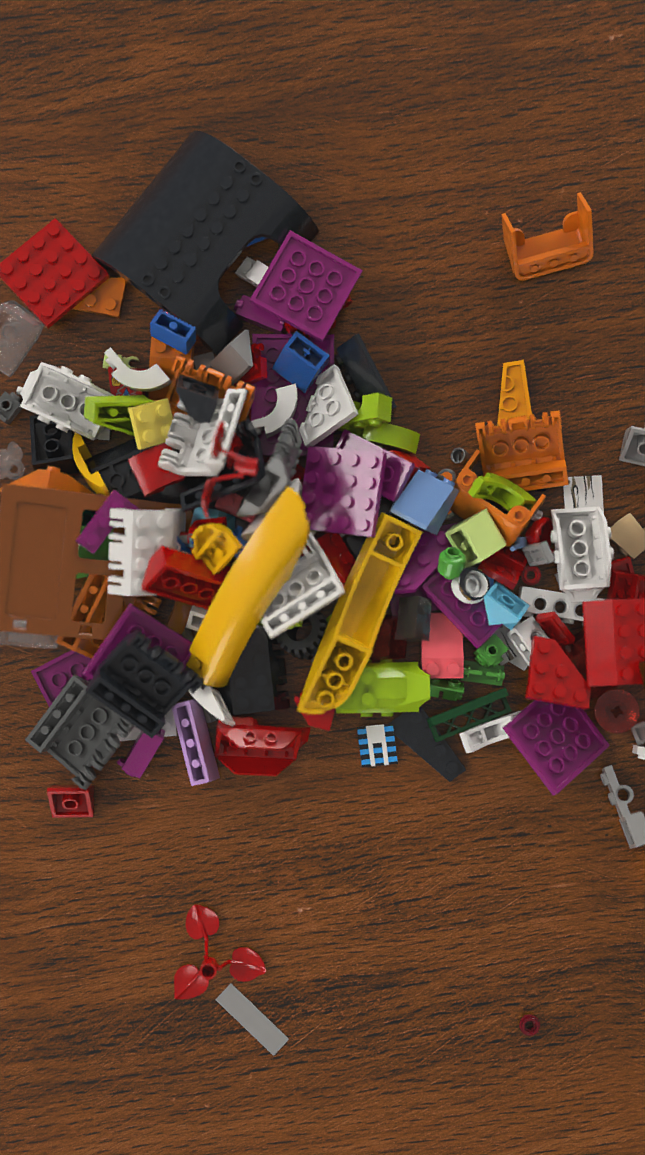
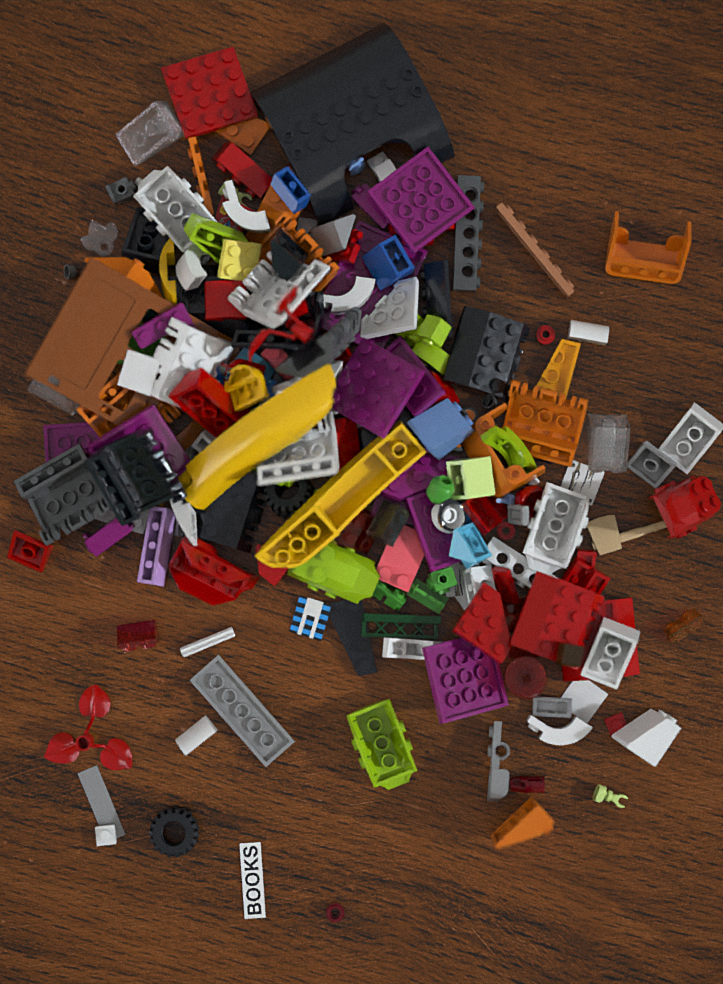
camera: 20 degrees right, 0 degrees up
(75, 355) = (199, 172): none -> orange wing
(101, 578) = (138, 372): none -> white sticker
(107, 452) = (189, 267): none -> white arch
(117, 334) = (242, 169): none -> red wedge
(214, 838) = (137, 634): none -> clear red slope
(227, 282) = (356, 166): none -> light blue plate
(270, 1048) = (105, 834): none -> white plate
(292, 807) = (207, 642): none -> white axle
(315, 911) = (195, 735): none -> white brick
(331, 1033) = (167, 847): none -> black tyre
(350, 866) = (242, 710): none -> light grey plate
(379, 351) = (460, 282): none -> dark grey brick
(431, 284) = (529, 243): none -> nougat plate
(434, 1029) = (252, 880): none -> white sticker
(435, 408) = (486, 352): none -> black slope
(482, 372) = (541, 339): none -> red plate
(503, 839) = (382, 744): none -> lime slope
(526, 346) = (588, 332): none -> white brick
(593, 445) = (608, 443): none -> clear slope

